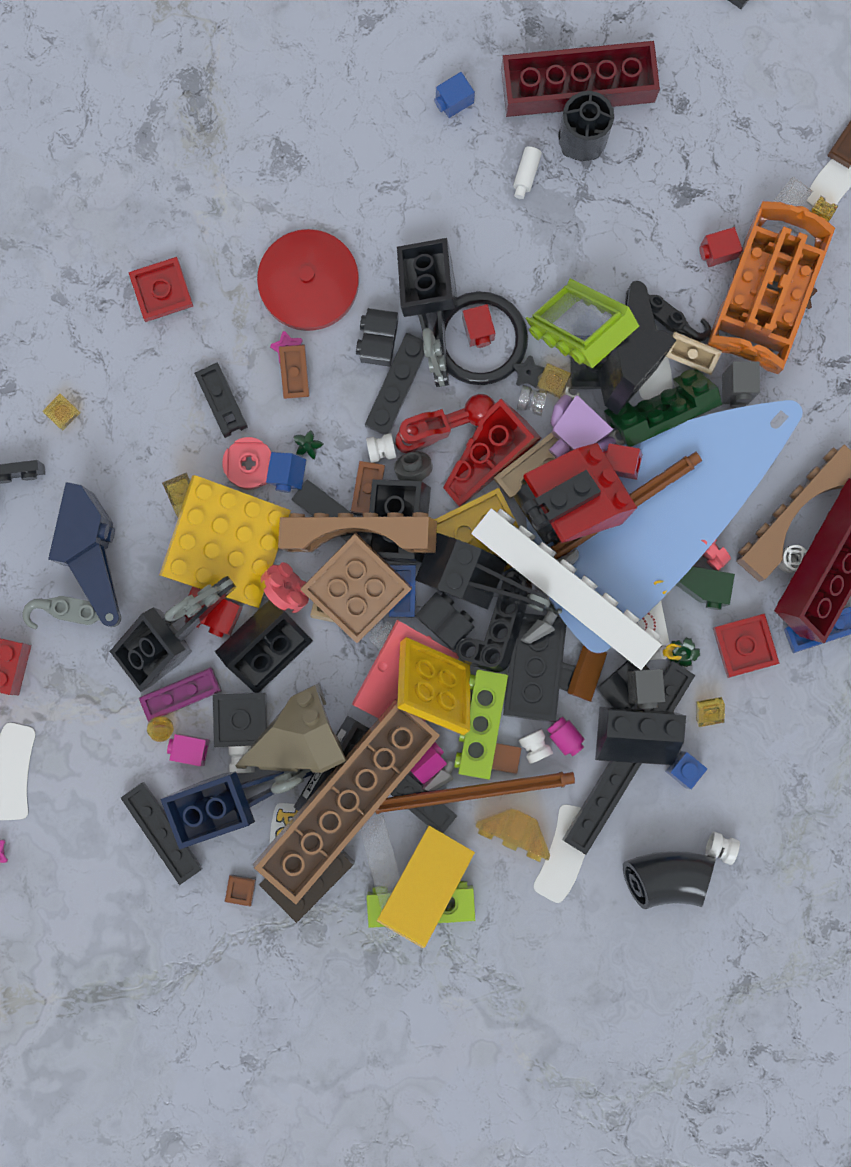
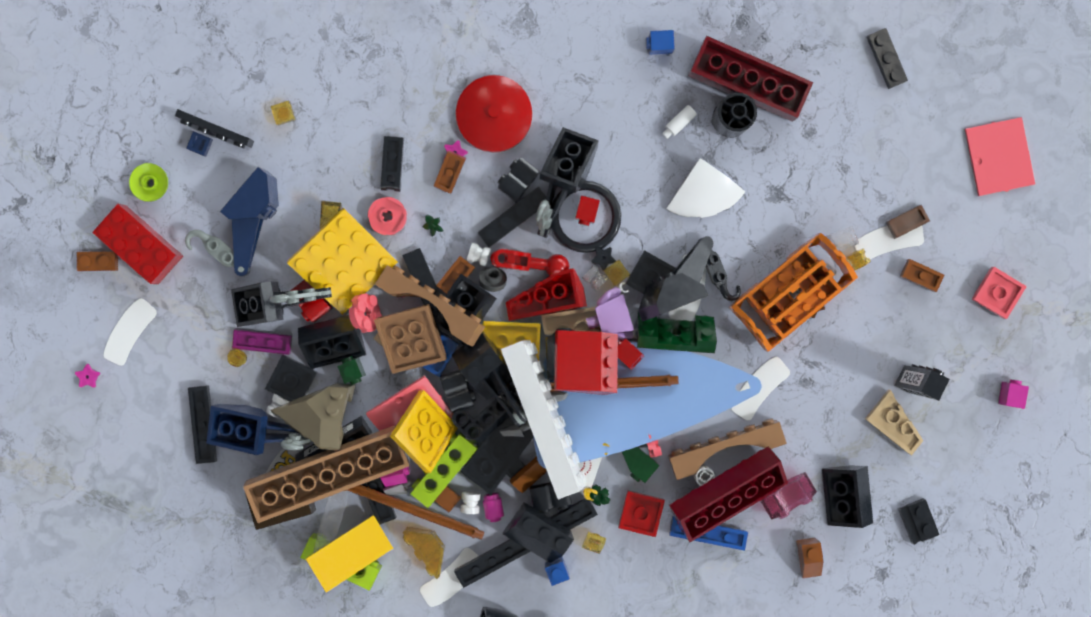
camera: 30 degrees right, 5 degrees up
(161, 289) = (393, 66): red plate -> none
(188, 749) = (247, 381): dark pink brick -> none
(240, 890) = (233, 487): dark orange tile -> none
(286, 471) = (407, 236): blue brick -> none
(306, 666) = (351, 370): none -> dark green brick
(561, 499) = (570, 362): black plate -> none
(582, 323) = (653, 249): lime window -> none
(602, 234) = (704, 192): none -> white brick
(646, 688) = (557, 510): dark grey brick -> none
(694, 353) = (717, 307): tan slope -> none
(720, 247) = (777, 245): red brick -> none
(740, 383) = (735, 345): dark grey brick -> none
(796, 448) = (770, 375): none -> white sticker

